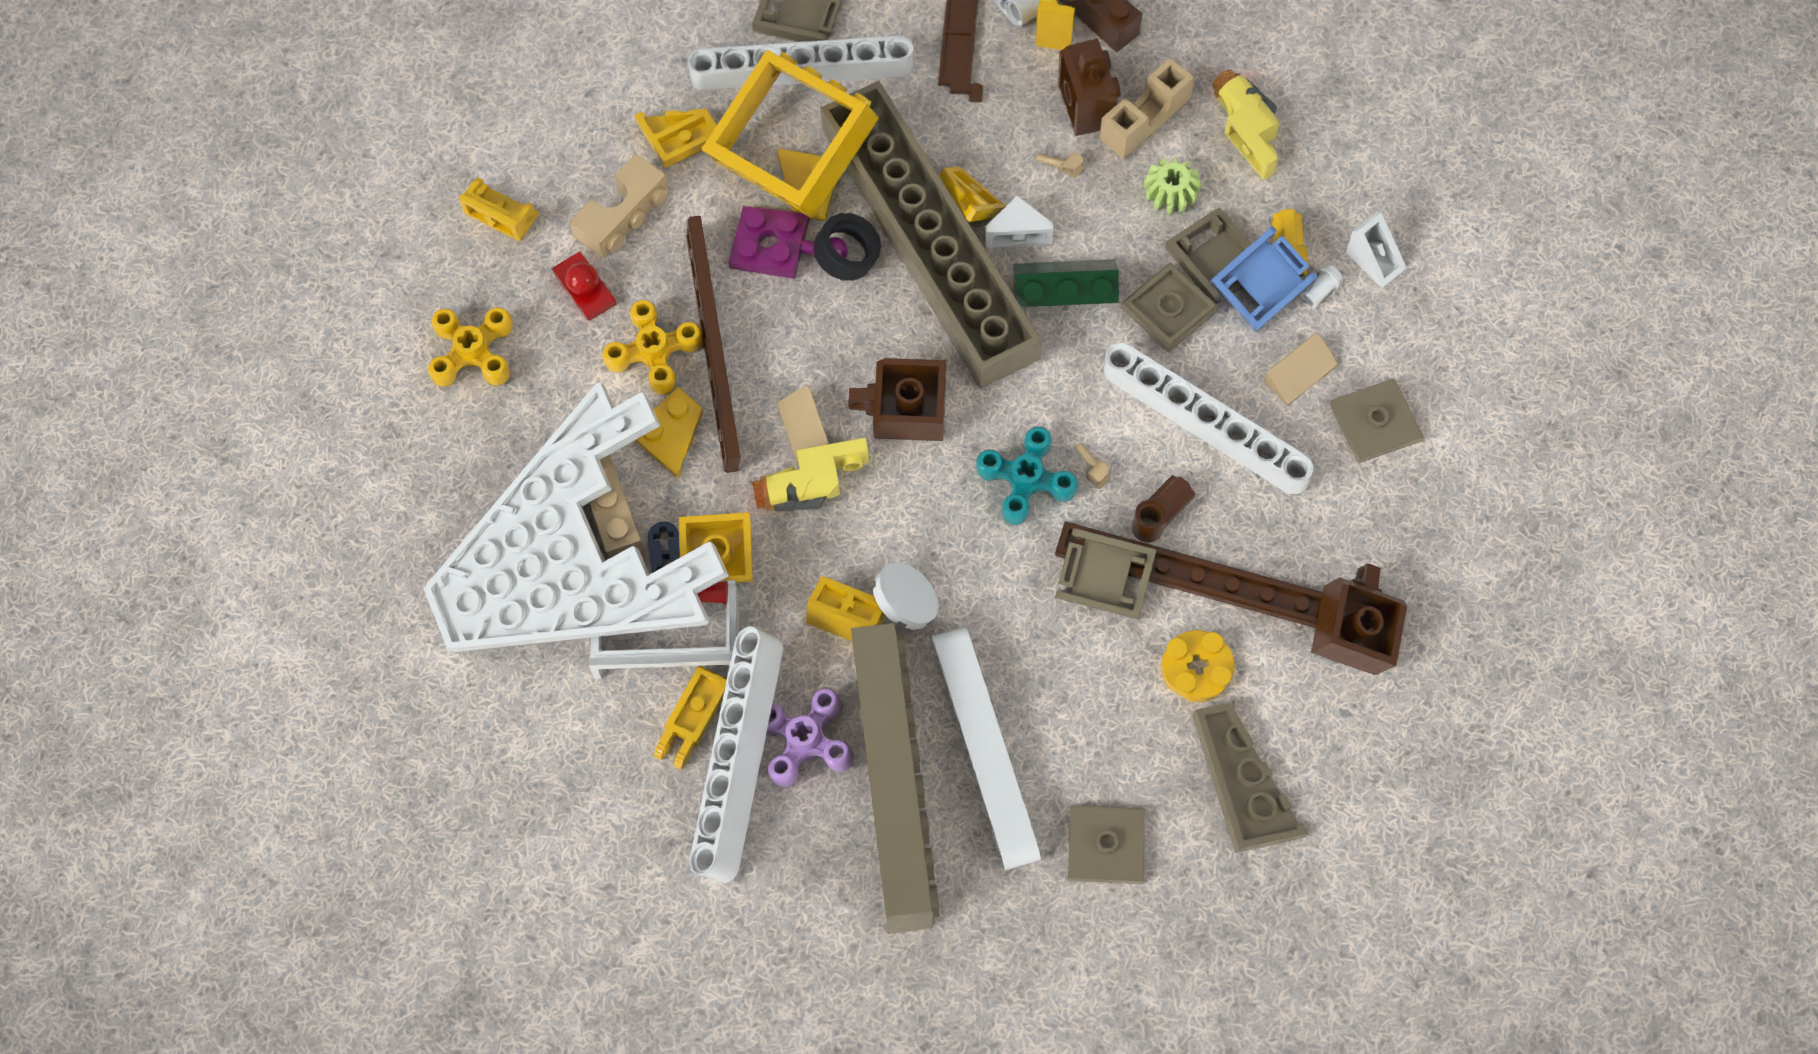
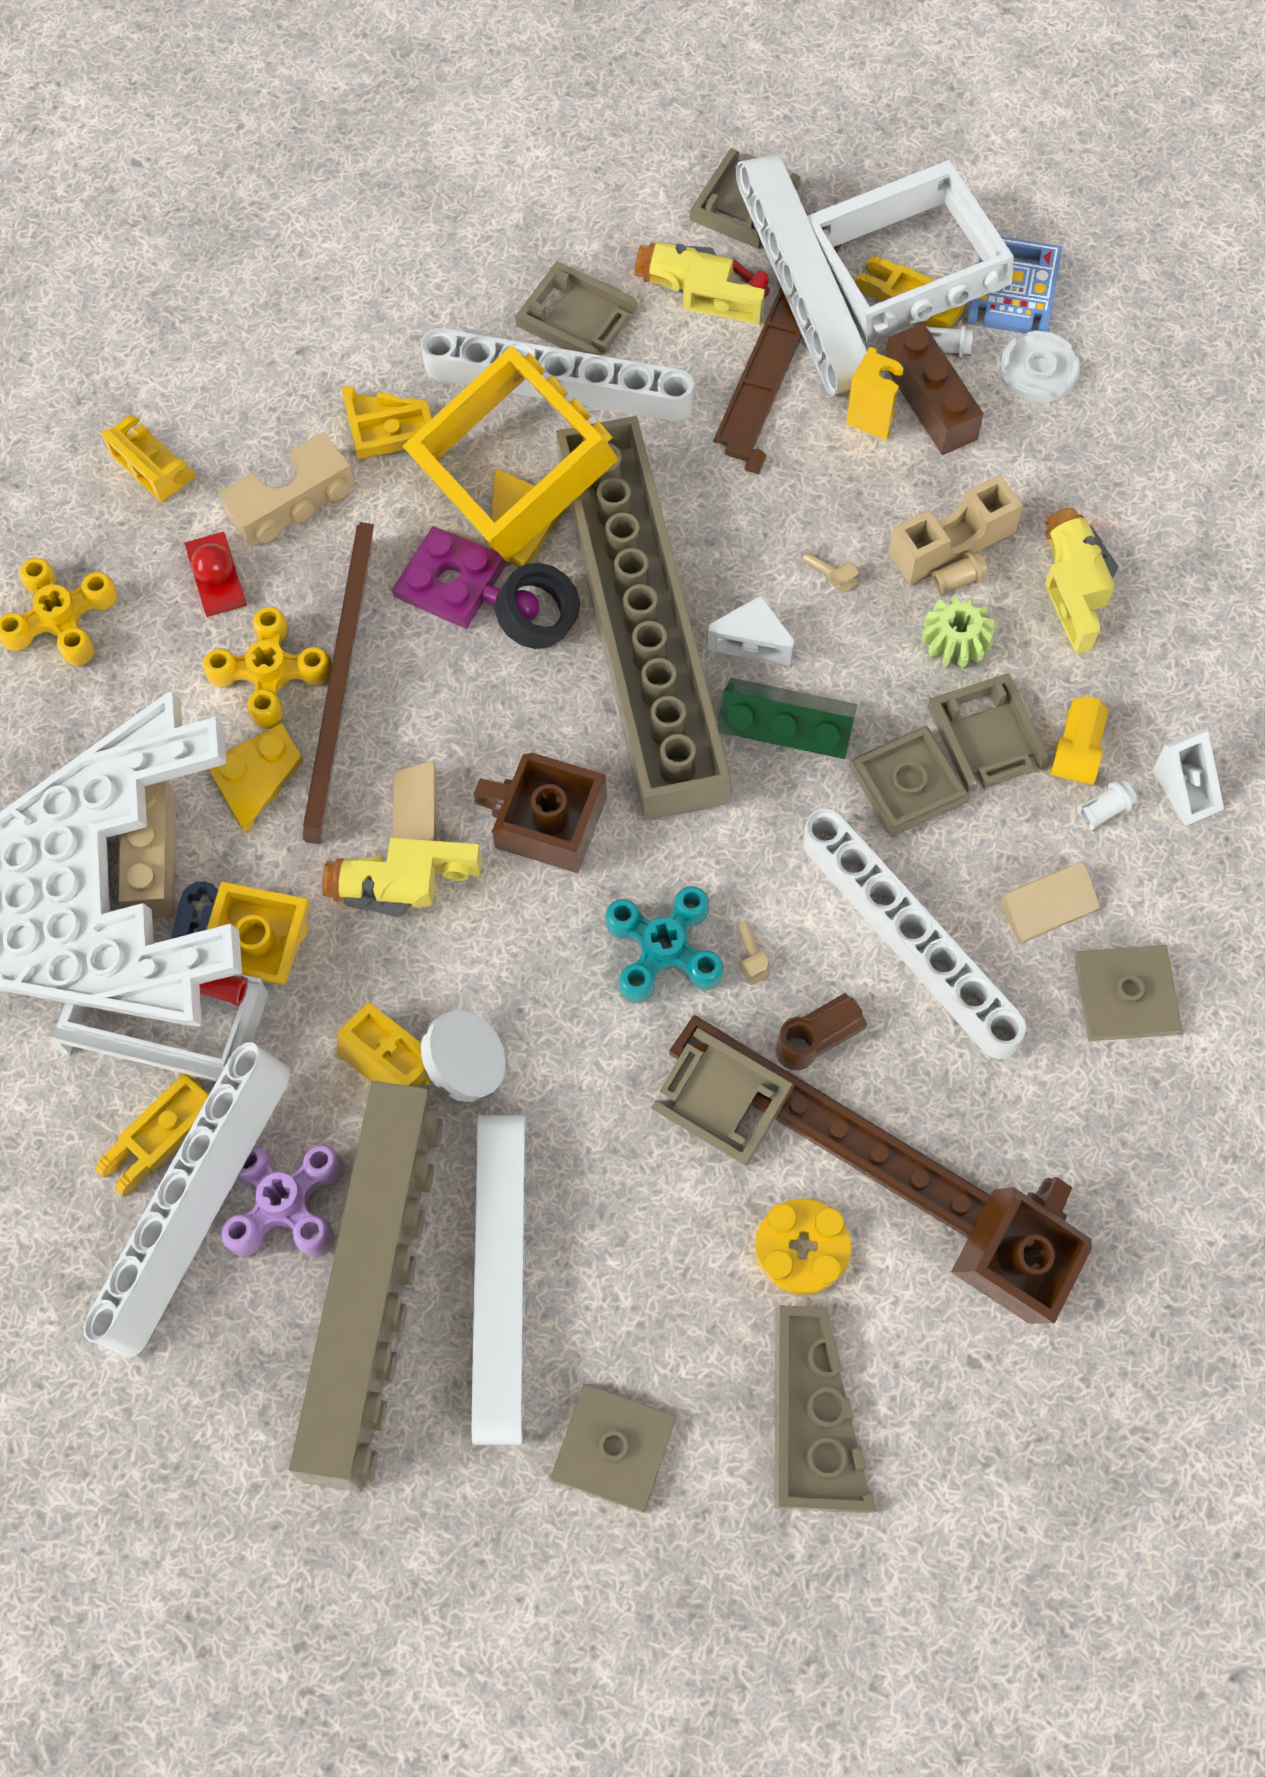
camera: 15 degrees right, 0 degrees up
(970, 196) = (704, 580): yellow wing -> none
(1087, 85) = (889, 482): reddish brown hinge -> none
(1159, 140) = (960, 573): none -> tan pin
(1267, 274) = (1042, 772): medium blue container -> none

